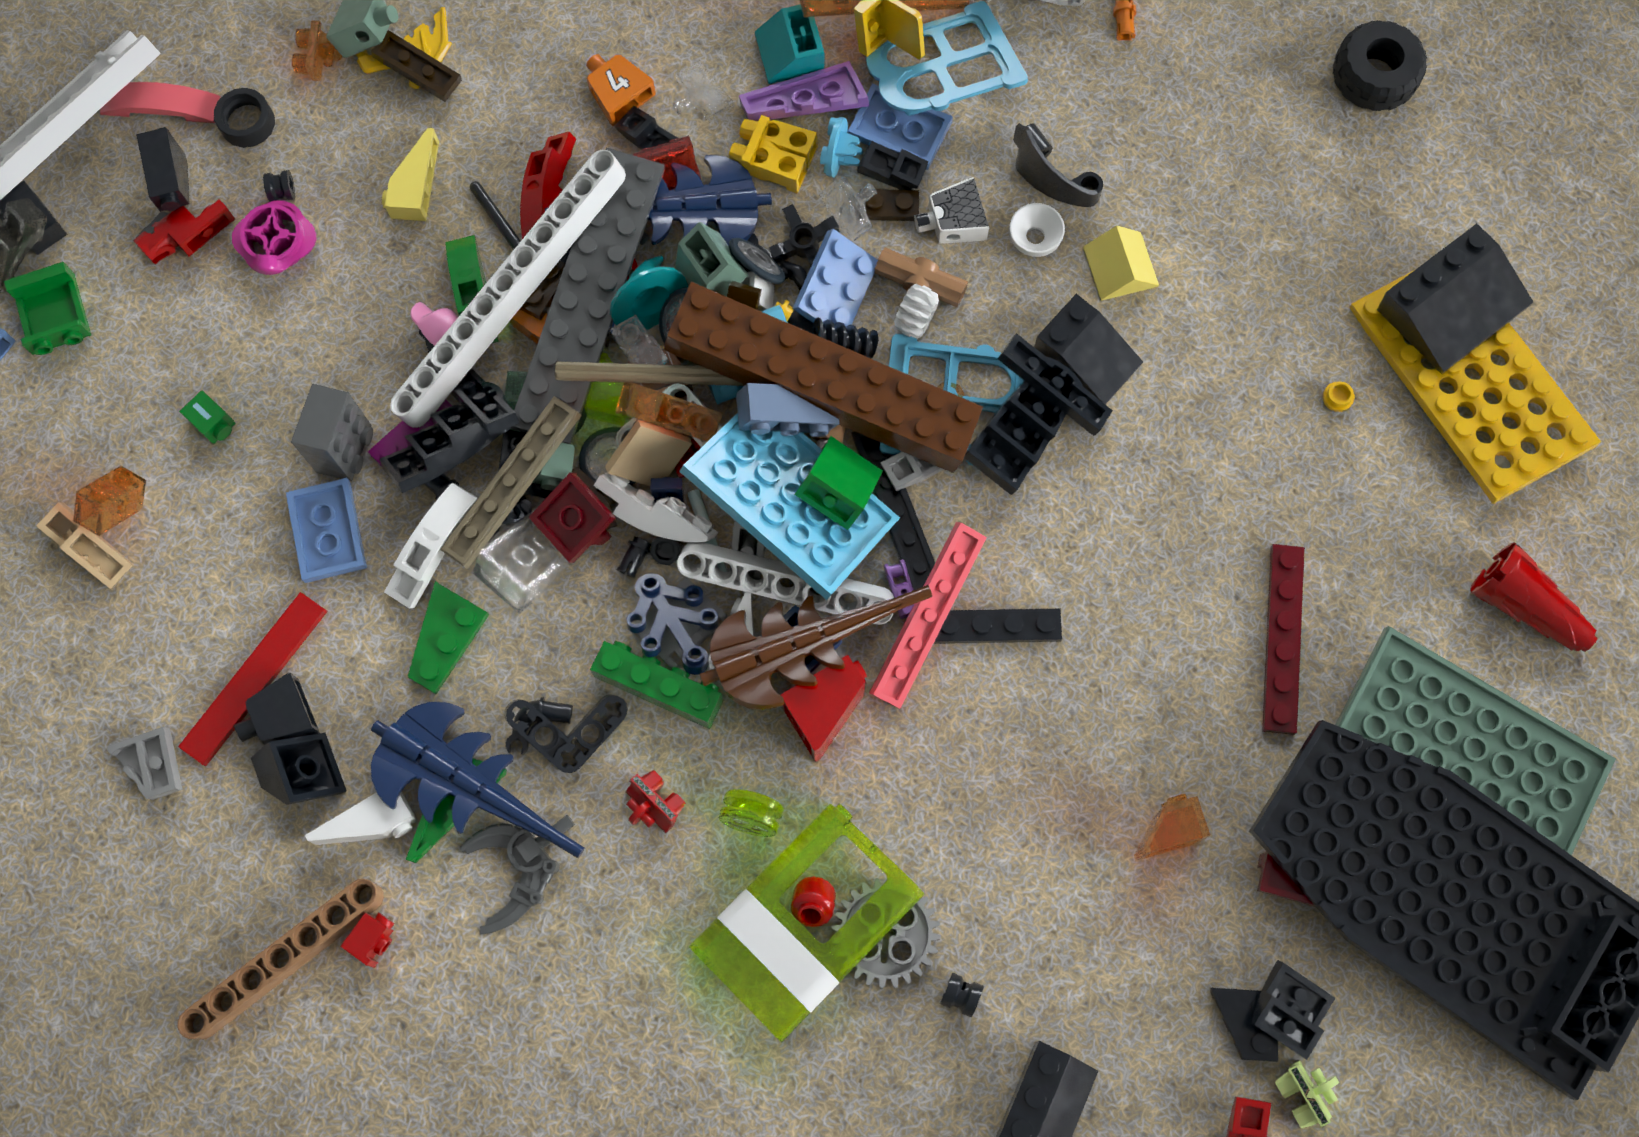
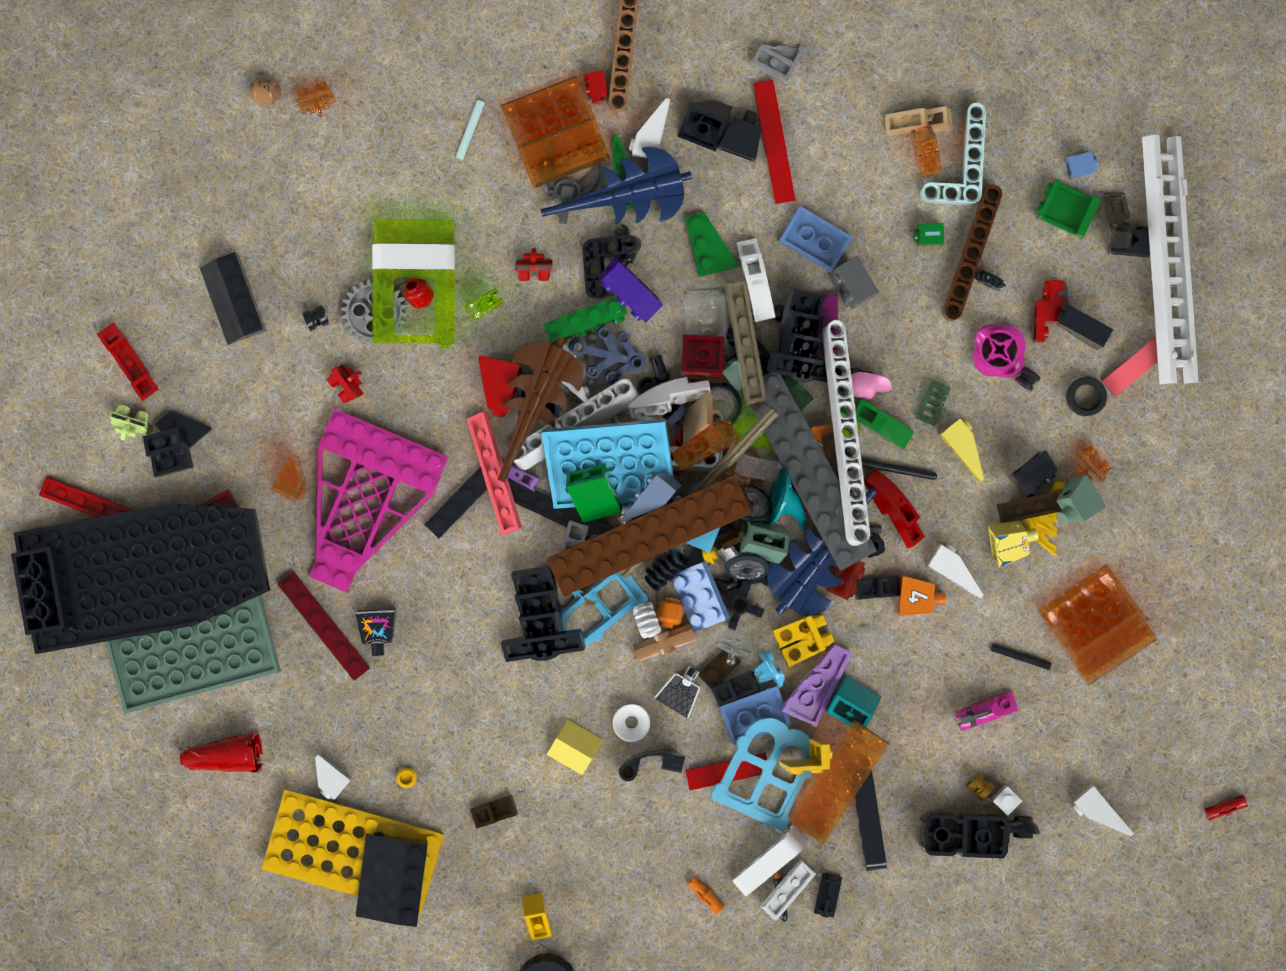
camera: 135 degrees right, 15 degrees up
(88, 452) = (968, 164): none -> light aqua beam
(174, 357) = (977, 244): none -> reddish brown beam
(202, 310) = (990, 280): none -> black gear
(374, 94) = (1033, 473): none -> black slope
(389, 267) = (946, 389): none -> clear green slope
(468, 933) = (555, 131): none -> clear orange slope
(471, 50) = (1010, 541): none -> light yellow torso
(552, 80) = (951, 566): none -> white slope
(562, 1039) = (470, 130): none -> light aqua bar
(573, 660) = (630, 290): none -> dark purple slope
(883, 299) = (669, 612): none -> orange head
(989, 105) = (713, 774): none -> red tile
(994, 881) = (348, 380): none -> red hips
(1035, 764) = (386, 454): none -> dark pink wing
(1089, 348) = (546, 683): black slope -> none
(1224, 577) = (376, 628): none -> black torso
(1278, 282) = (494, 811): none -> dark brown slope
(1324, 140) = (536, 916): none -> yellow slope
(1427, 468) = (330, 777): none -> white slope
(1450, 1057) = (79, 499): none -> red tile

